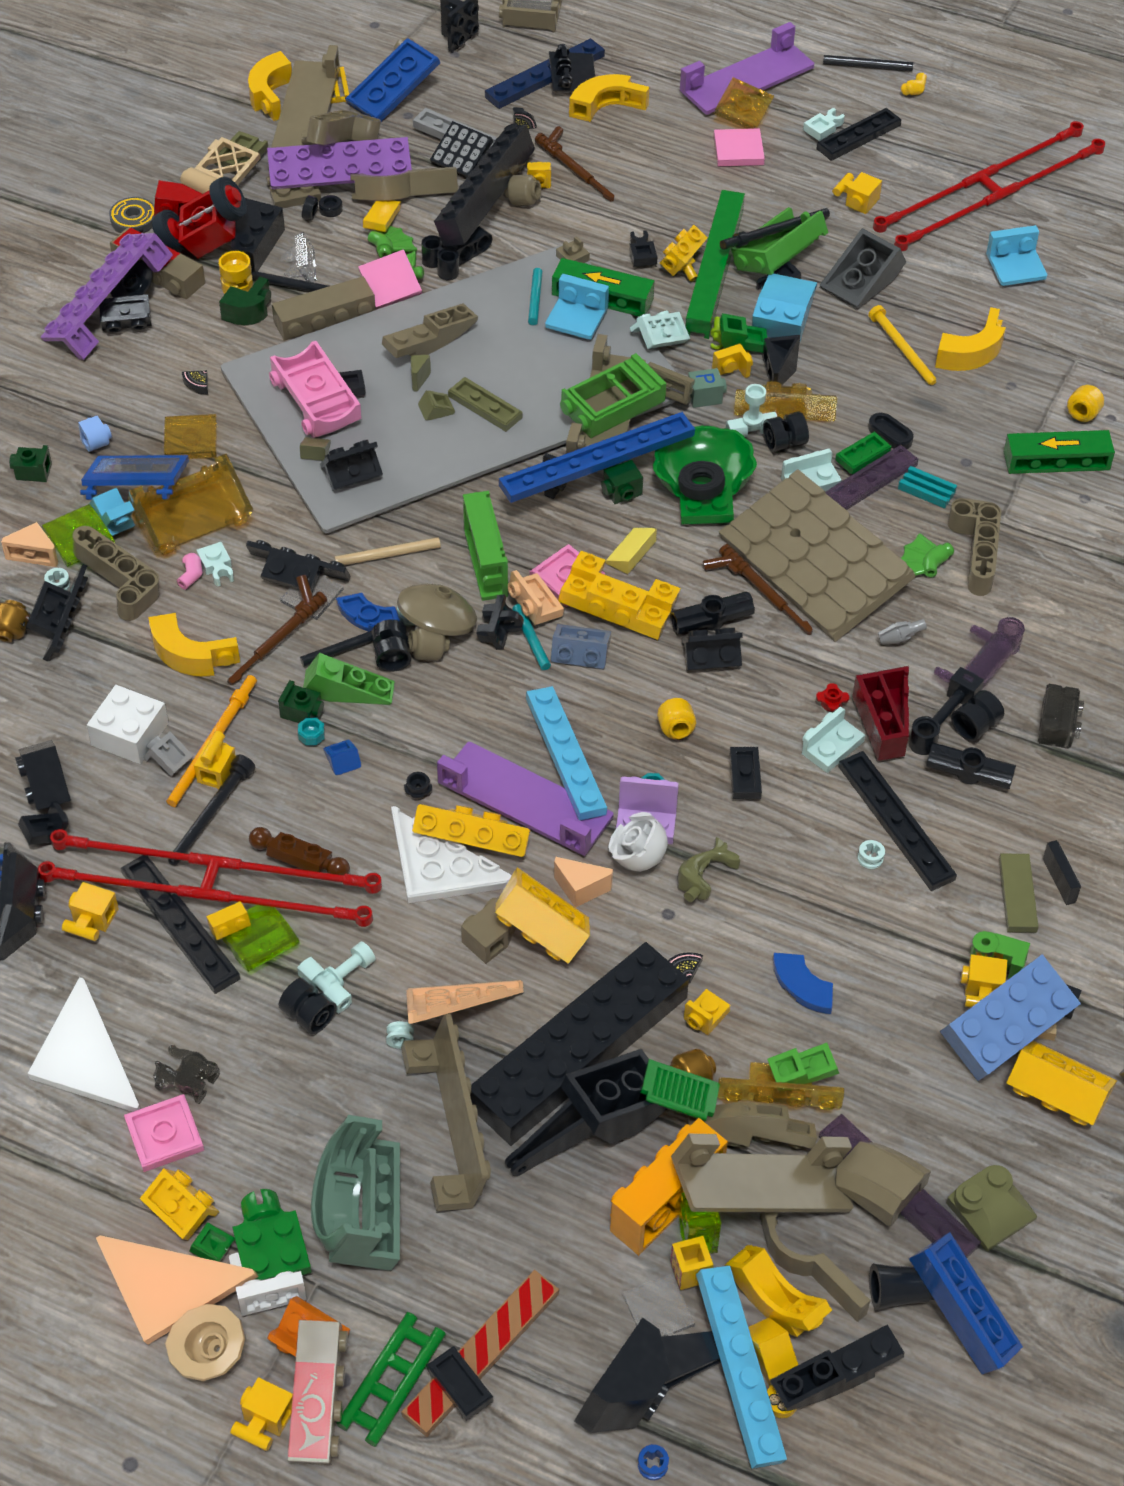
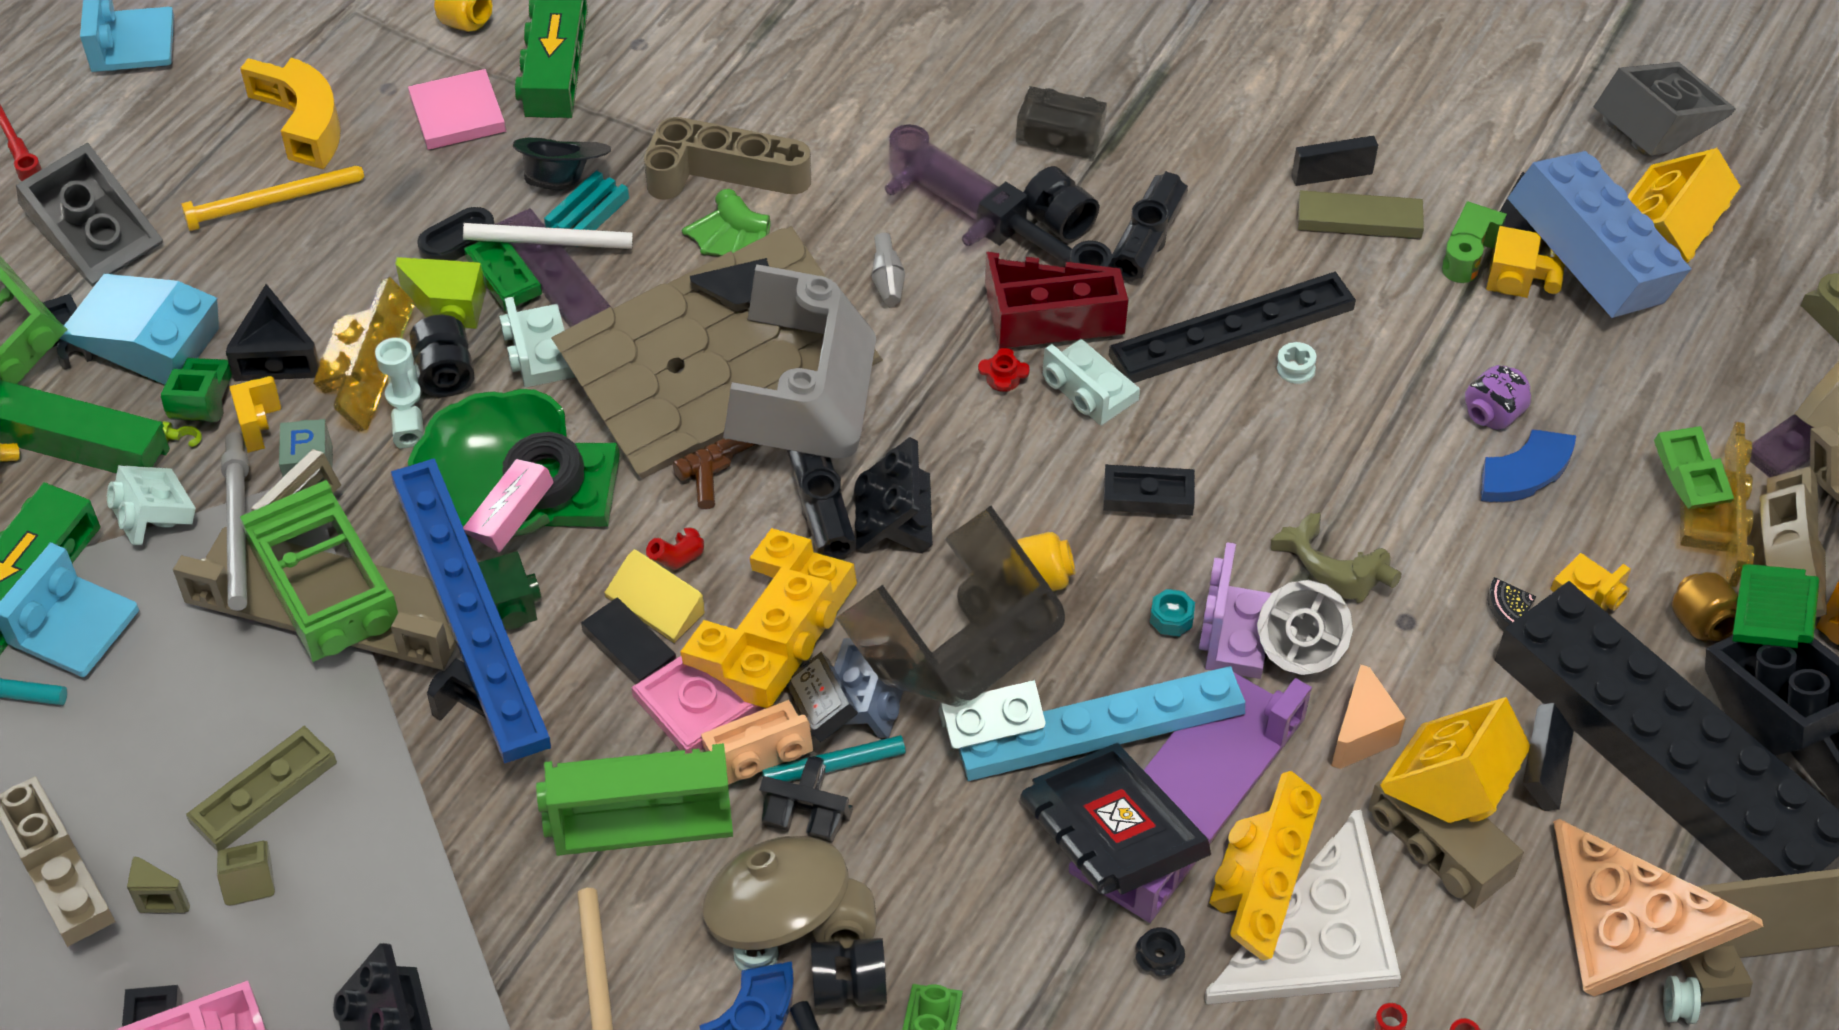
camera: 85 degrees left, 0 degrees up
(490, 749) = (1114, 821): none -> black hinge
(561, 695) = (993, 715): none -> light aqua bracket
(563, 974) = (1548, 757): none -> black tile
(565, 620) = (821, 697): none -> tile
(572, 663) = (1003, 599): none -> clear smoke windscreen
(602, 538) = (627, 640): none -> black tile
(662, 555) = (686, 549): none -> red arm
(668, 465) = (509, 504): none -> bright pink slope
(692, 361) = (235, 468): none -> light grey bar
(787, 596) = (810, 408): none -> light grey windscreen
(837, 427) = (444, 287): none -> lime slope
(855, 549) = (729, 284): none -> black tile
(856, 963) = (1498, 397): none -> medium lavender head
(891, 466) = (547, 236): none -> white bar
(957, 460) = (556, 163): none -> black piece
(997, 416) = (456, 109): none -> bright pink tile

